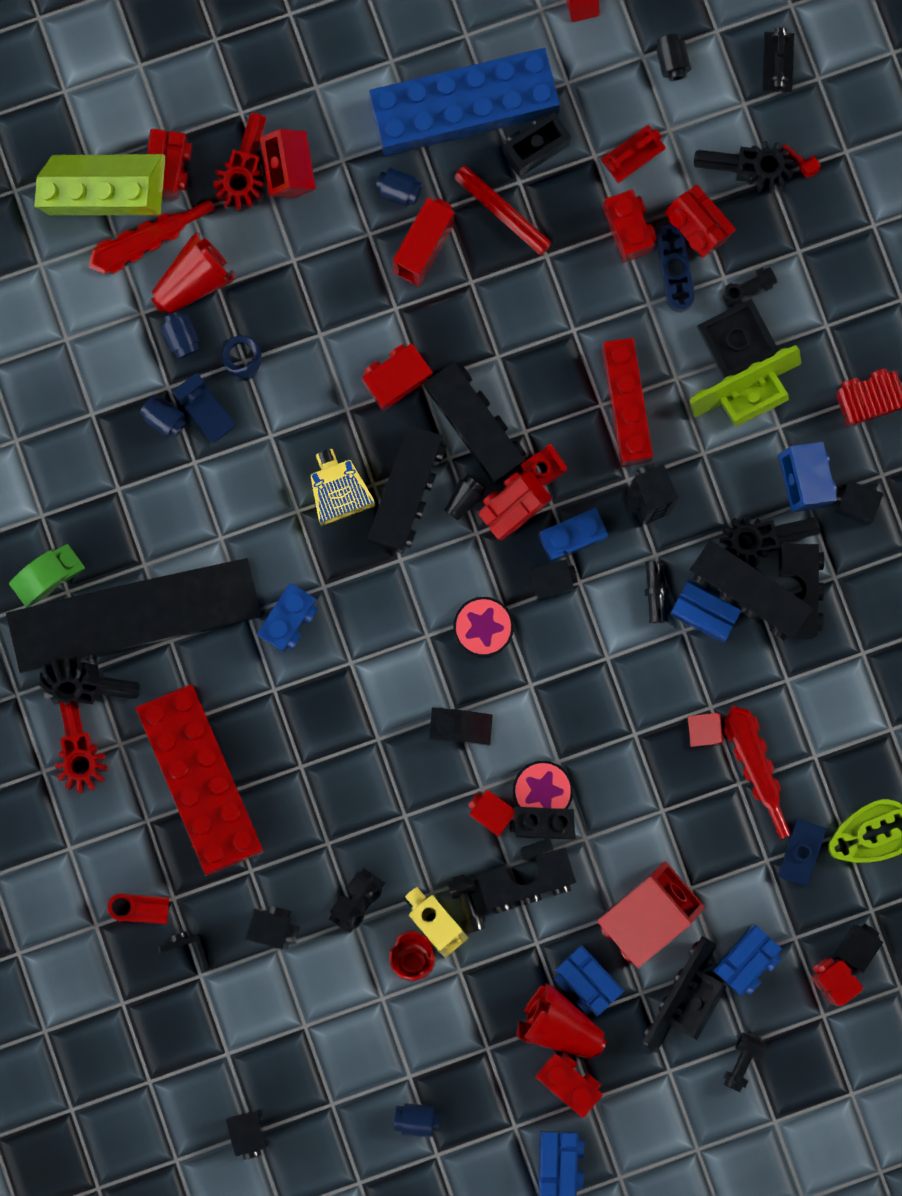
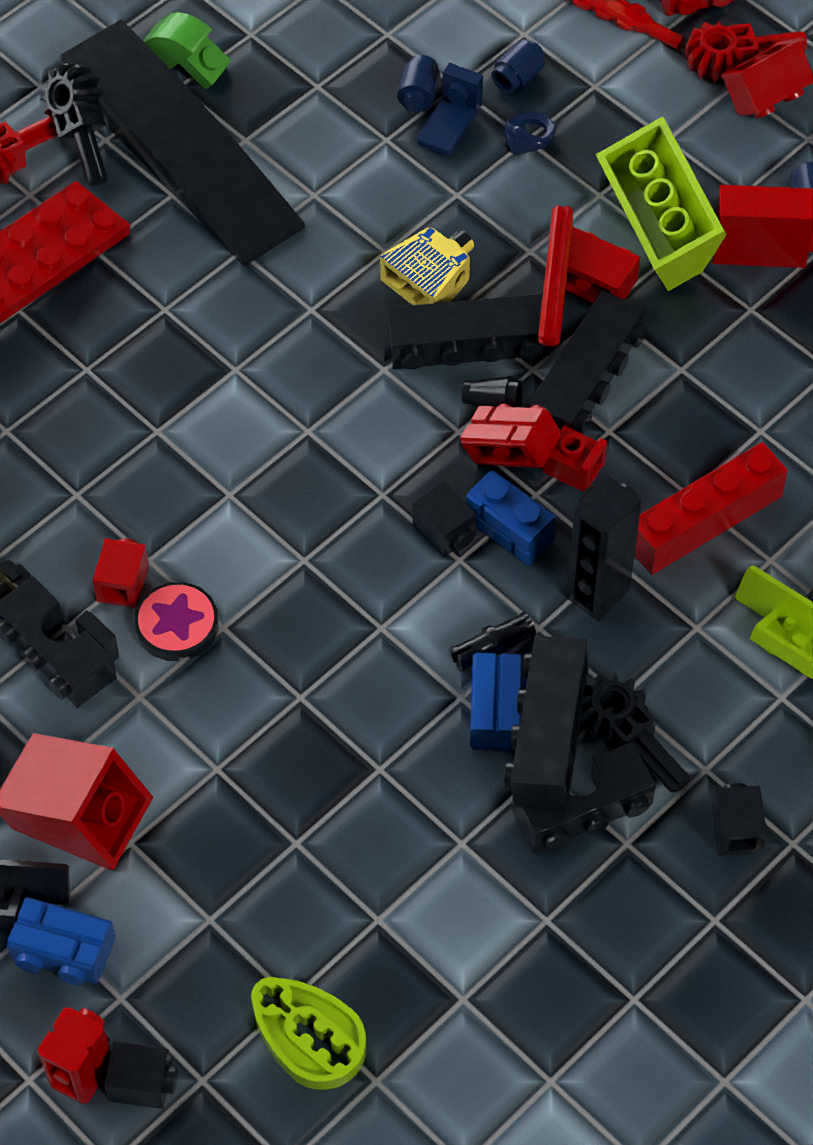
camera: 70 degrees right, 25 degrees down
(191, 276) = (592, 44): red cone -> none
(287, 618) = (252, 276): blue brick -> none
(370, 302) = (663, 202): none -> lime slope
(404, 410) = (555, 276): none -> red axle
(460, 726) = (211, 495): black slope -> none
(483, 627) = (348, 478): tile -> none
(543, 823) = (133, 626): black hinge -> none
(705, 730) = (346, 770): red slope -> none
(750, 750) = (345, 834): red sword -> none
(802, 852) = (239, 953): dark blue plate -> none
(807, 477) = (736, 740): blue brick -> none

